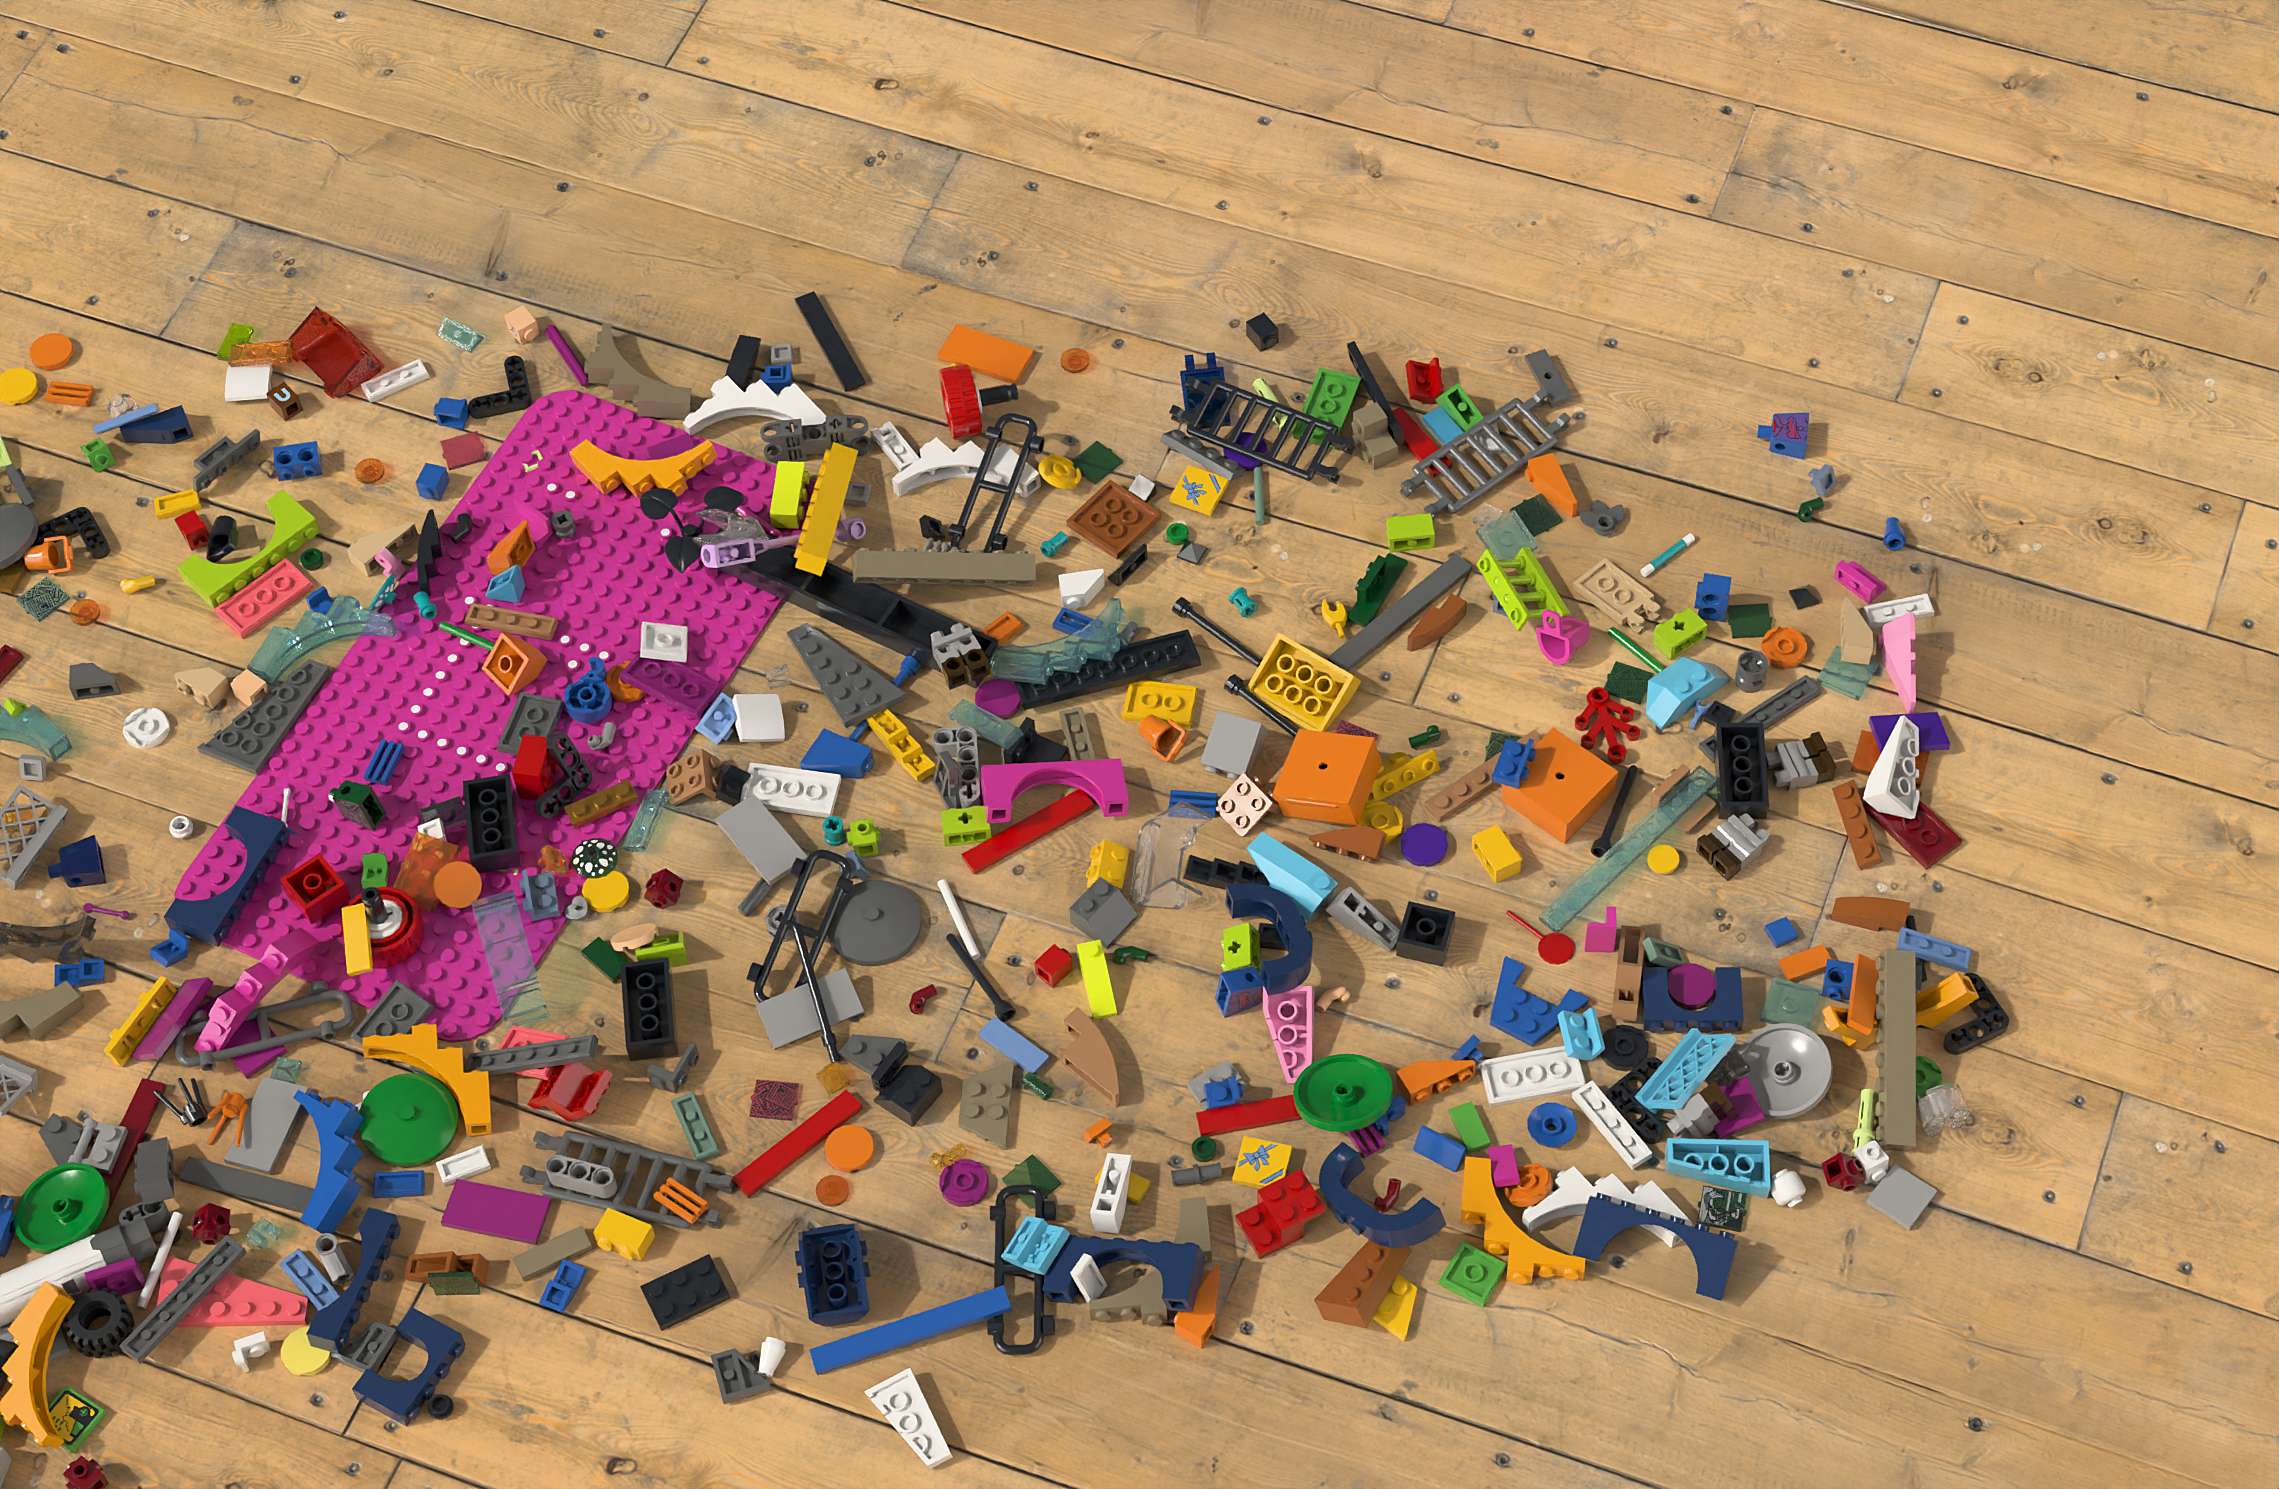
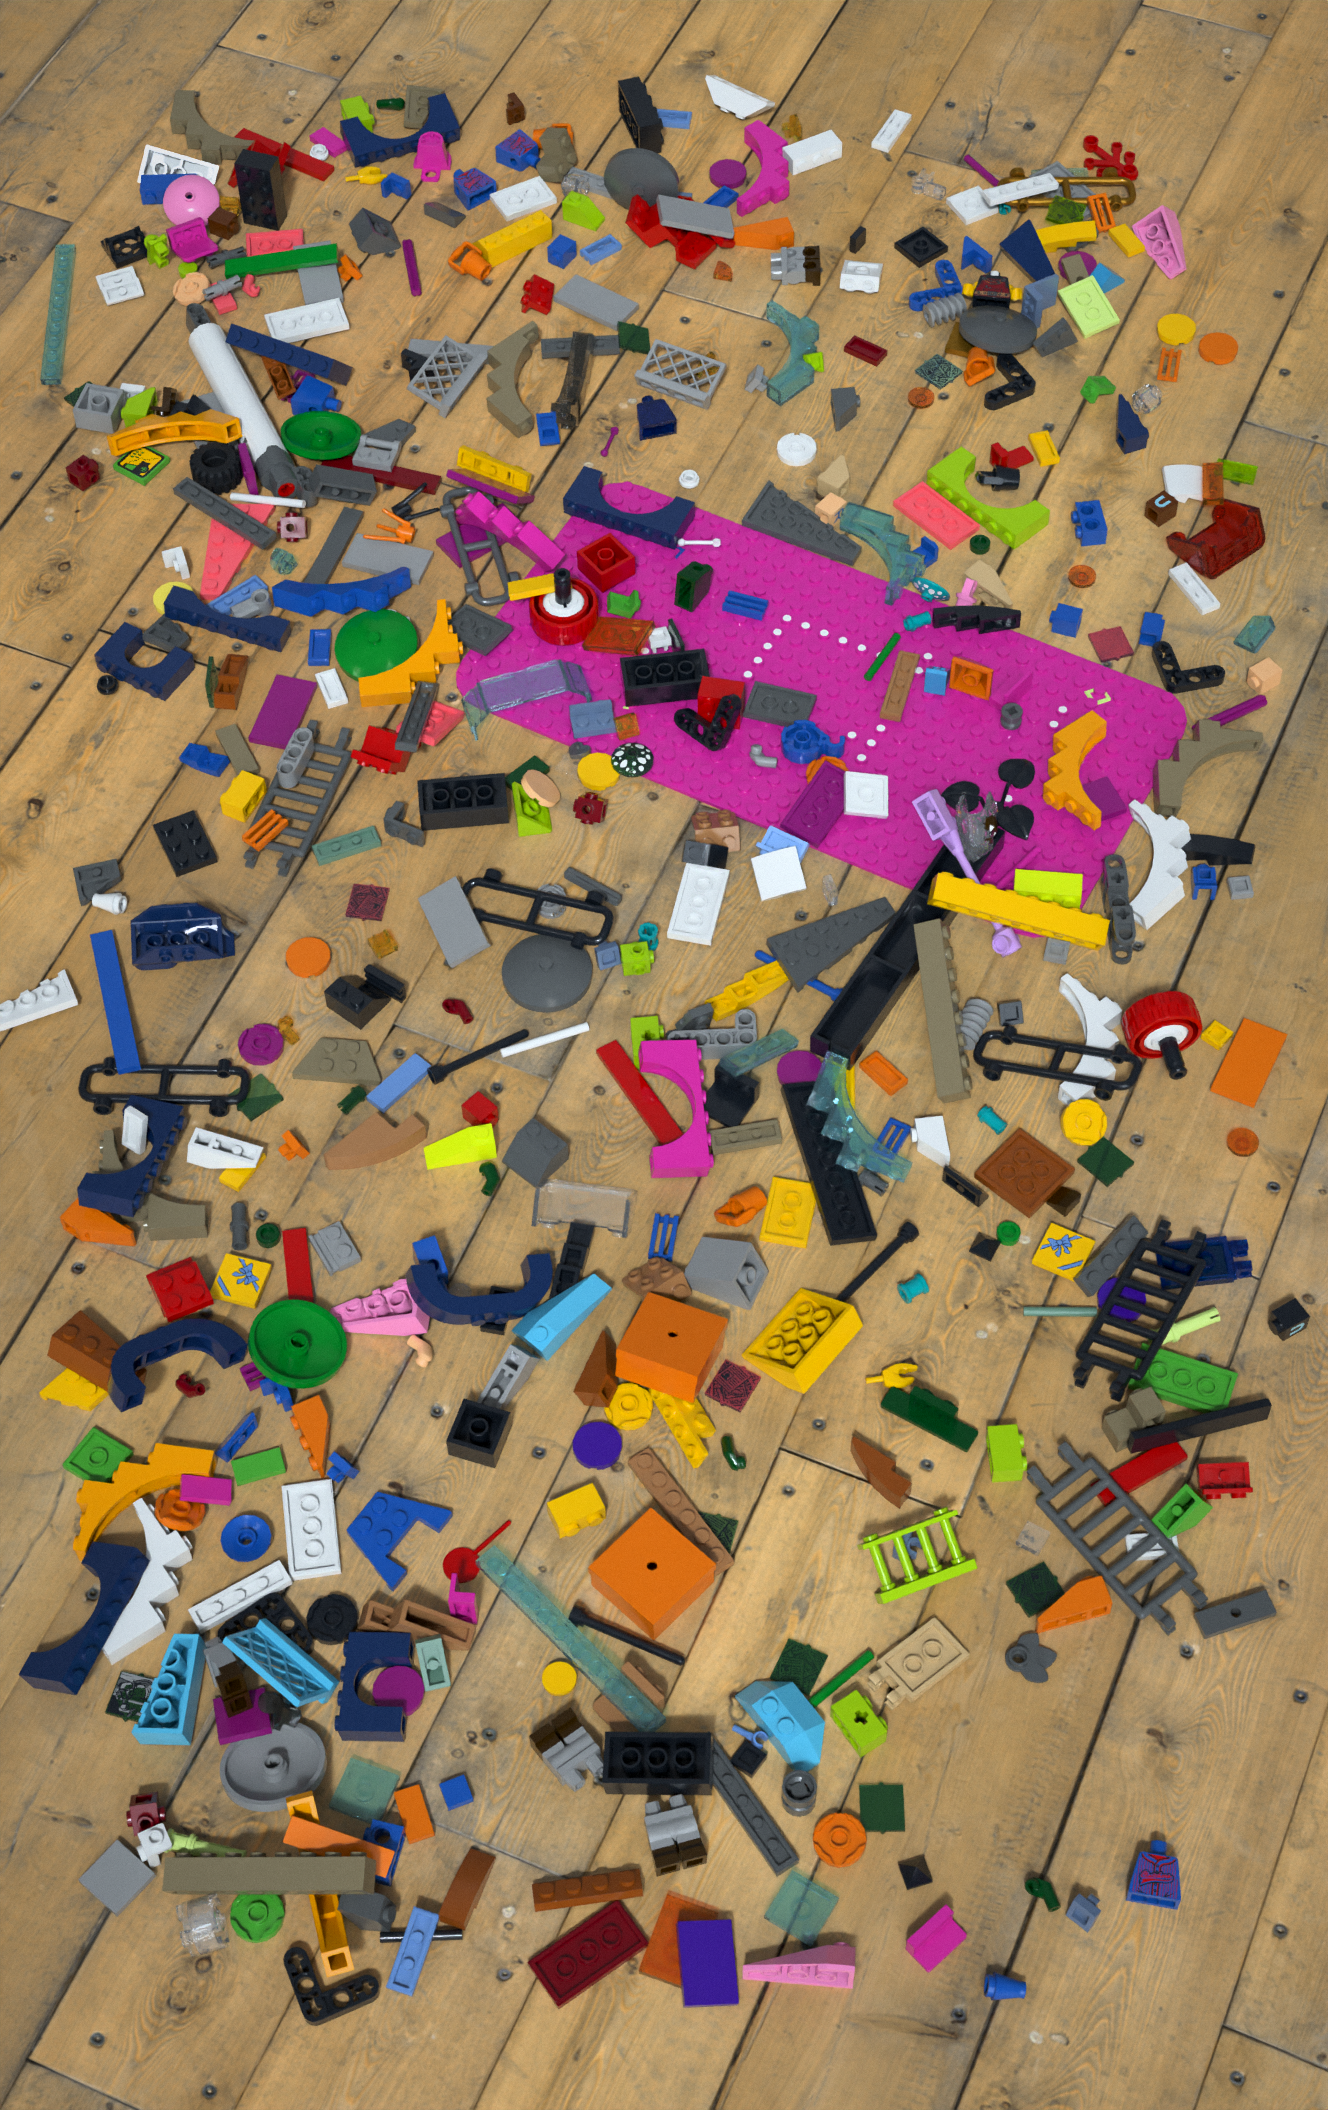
camera: 90 degrees right, 0 degrees up
(126, 418) = (1128, 396): medium blue tile -> none
(130, 586) = (950, 427): yellow arm -> none
(171, 950) = (560, 481): blue bracket -> none
(221, 457) = (1091, 468): dark grey bracket -> none
(286, 1069) = (438, 566): clear light blue tile -> none
(457, 884) = (602, 658): orange tile -> none
(464, 528) = (1009, 644): black arm -> none
(513, 663) = (846, 687): orange slope -> none
(601, 804) = (689, 760): pearl gold plate -> none
(645, 820) = (672, 796): clear light blue tile -> none
(760, 839) = (639, 878): light grey tile -> none
(797, 1143) = (319, 919): red tile -> none
(828, 1039) = (422, 936): black bar -> none
(829, 341) = (1260, 926): black tile -> none
(832, 1190) = (269, 946): clear orange piece -> none
(838, 756) = (734, 938): blue slope -> none
(867, 1051) = (407, 970): dark grey wing -> none
(894, 446) = (1119, 981): white plate -> none
(958, 655) = (824, 1016): hips -> none
(1035, 1245) = (176, 1089): medium azure slope -> none
(1108, 862) = (591, 1161): yellow bracket -> none
(1223, 1093) = (317, 1246): blue bracket -> none
(1235, 686) = (805, 1278): black piece -> none
(1241, 947) = (476, 1268): lime brick -> none
(1400, 613) = (899, 1441): dark grey tile -> none
(1442, 425) = (1157, 1498): dark azure tile -> none
(1506, 536) = (998, 1553): clear light blue tile -> none
(1513, 763) = (666, 1517): blue bracket -> none
(1562, 637) = (852, 1595): dark pink container -> none
(1581, 1034) = (346, 1572): medium azure bracket -> none
(1606, 723) = (742, 1637): red plant -> none
(1668, 554) = (977, 1725): teal bar -> none
(1713, 597) = (900, 1758): blue brick -> none
(1787, 1188) = (139, 1758): white head -> none
(1856, 635) = (840, 1914): tan slope -> none
(1883, 613) = (890, 1979): white tile -> none
(1892, 780) = (637, 1932): white wedge -> none

